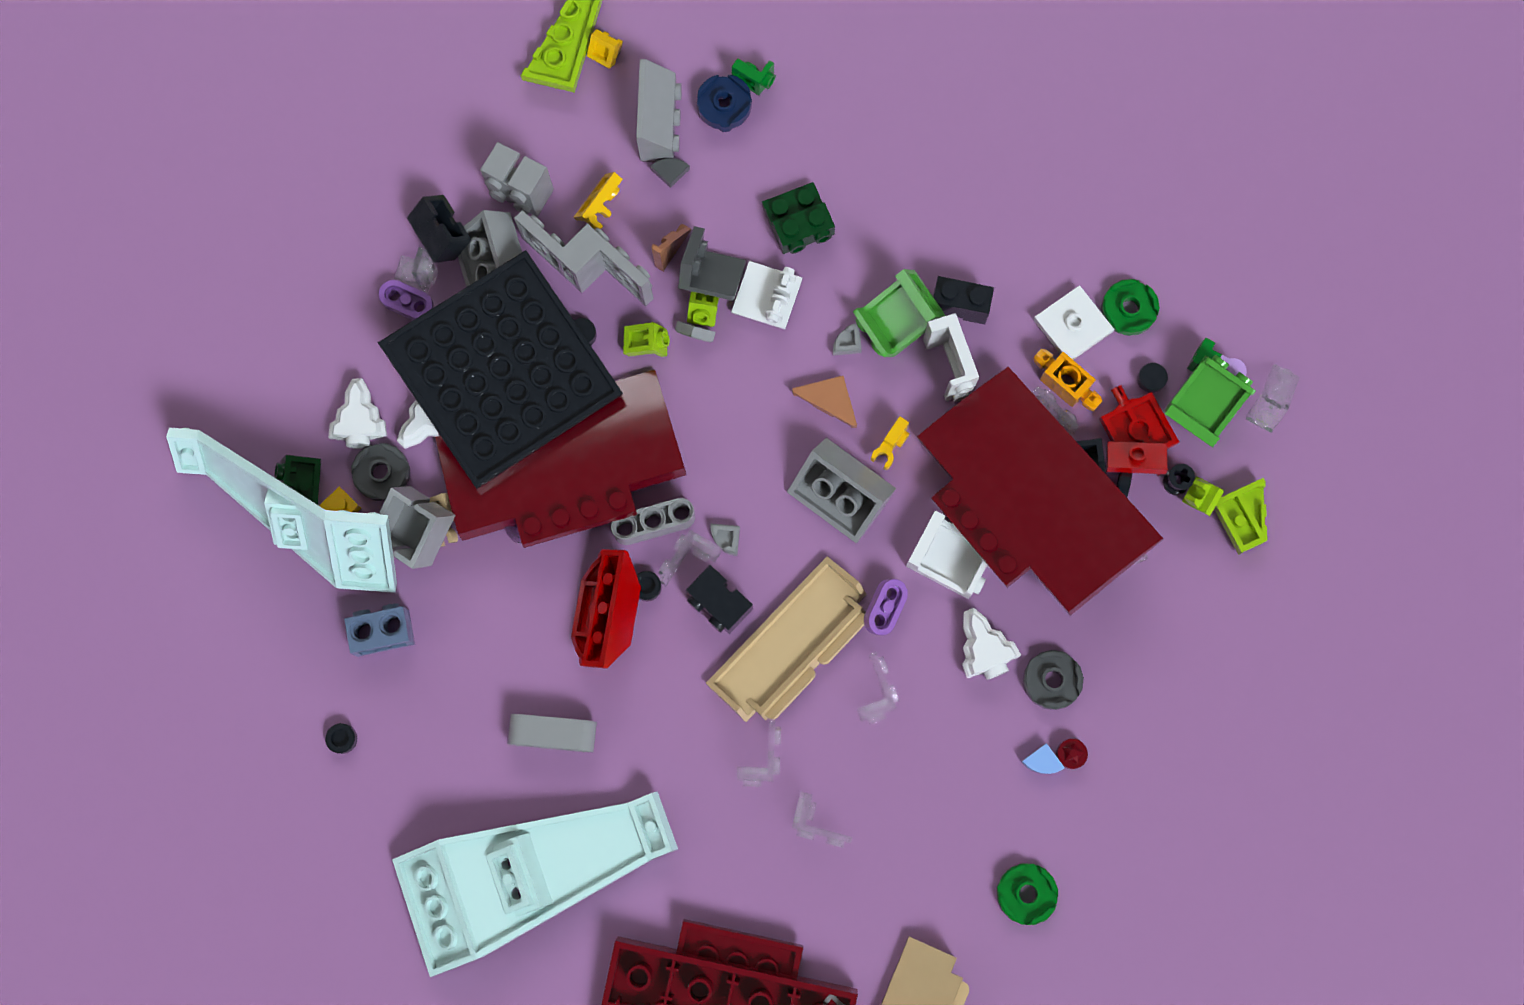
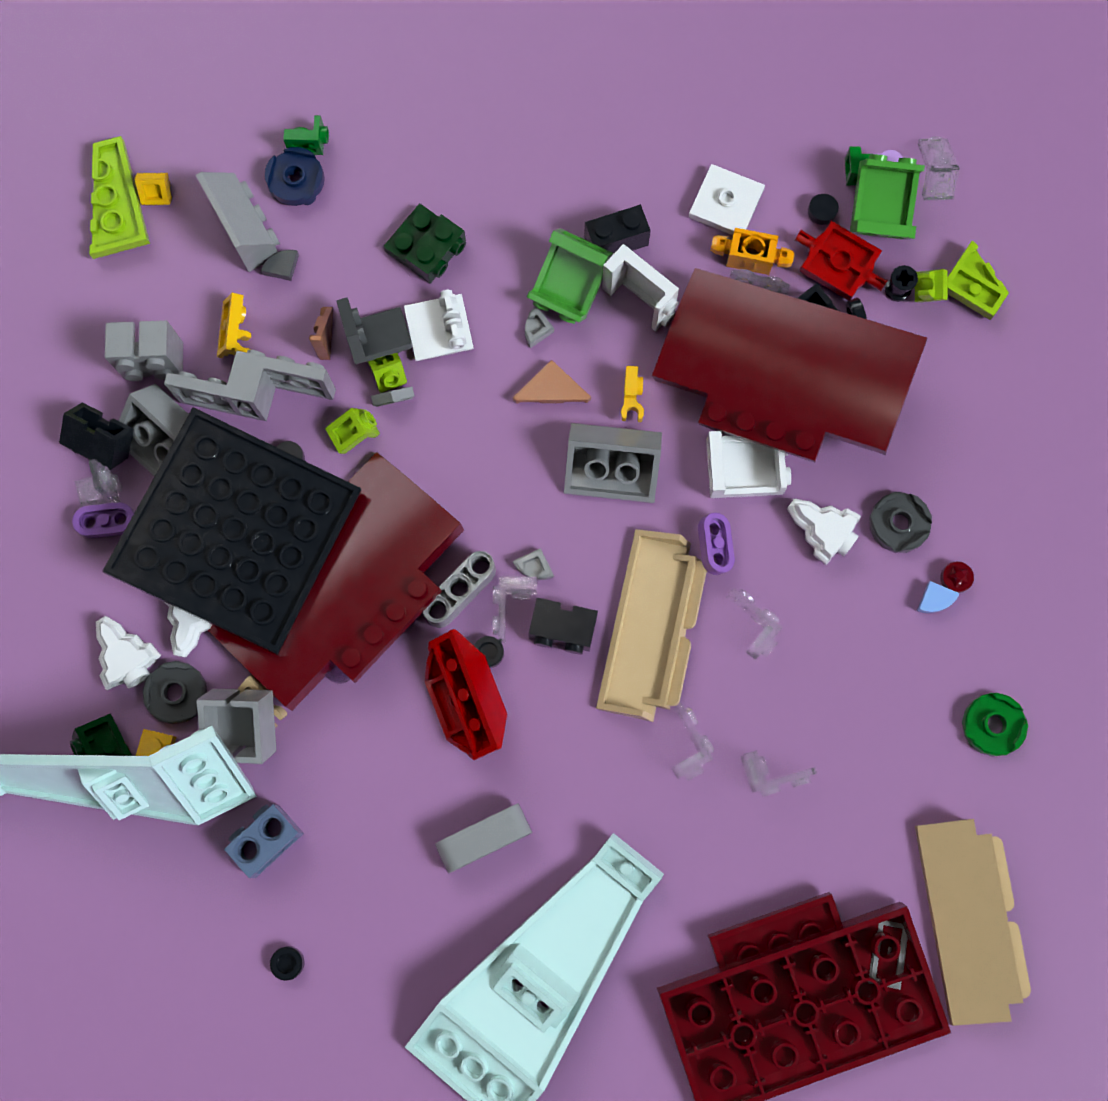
camera: 30 degrees left, 0 degrees up
(1137, 457) = (856, 283): red plate -> none
(1141, 295) = (766, 143): green tile -> none

